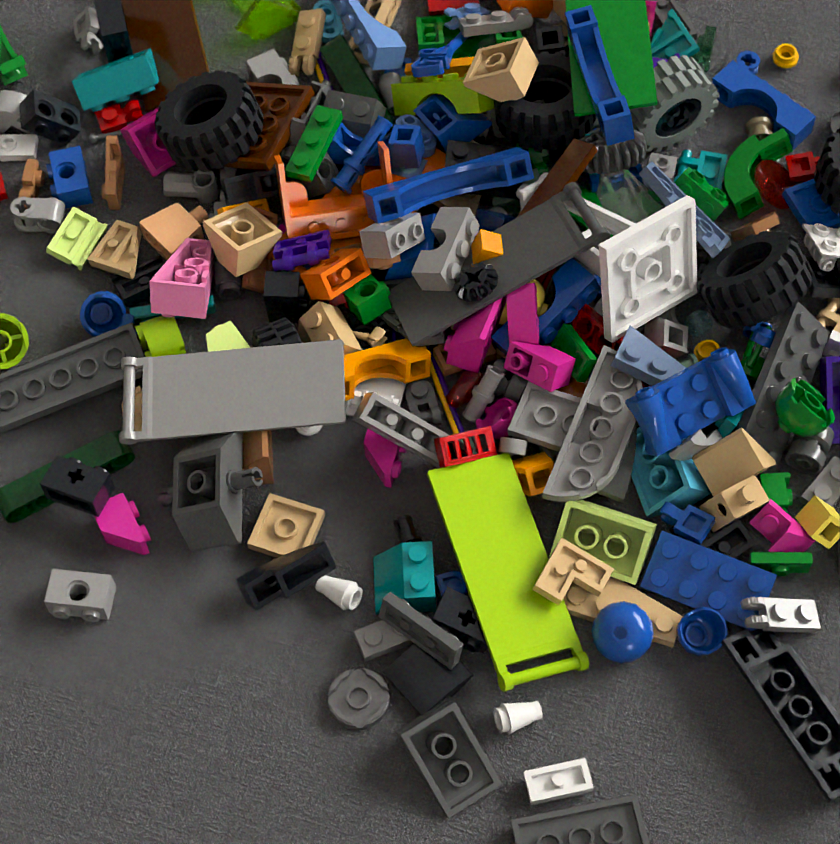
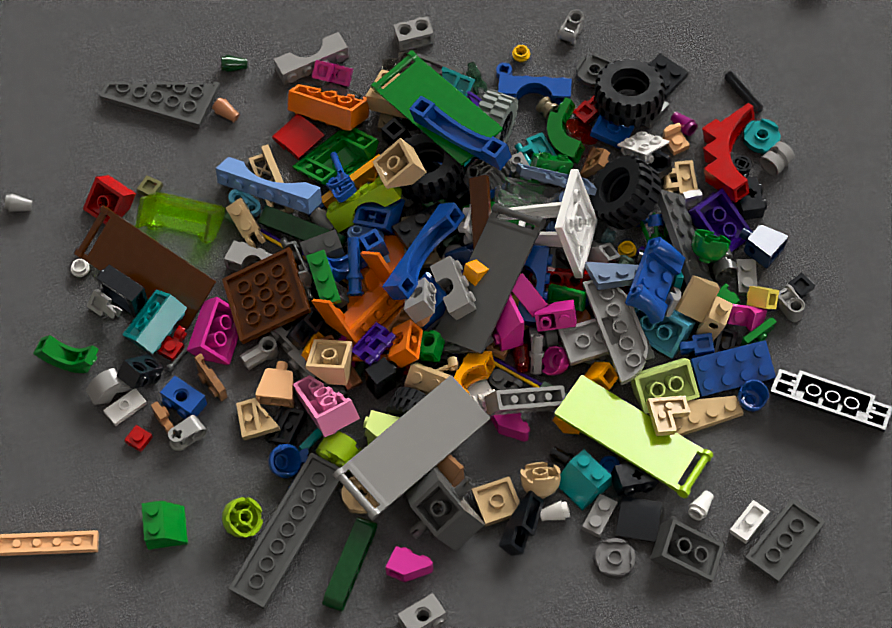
camera: 40 degrees left, 0 degrees up
(76, 238) = (222, 430): yellowish green plate -> none
(77, 485) = (361, 562): black brick -> none
(209, 121) = (264, 321): black tyre -> none
(352, 538) = (540, 478): none -> tan cylinder
(421, 630) = (620, 498): dark grey plate -> none
(443, 450) = (549, 393): red slope -> none
(462, 12) = (327, 144): medium blue plate -> none
(472, 291) = (494, 299): black gear -> none
(496, 22) = (350, 139): light grey hinge -> none
(513, 446) = (577, 371): light grey beam -> none
(622, 632) = (715, 424): blue cylinder -> none
(782, 614) = (784, 358): hinge -> none

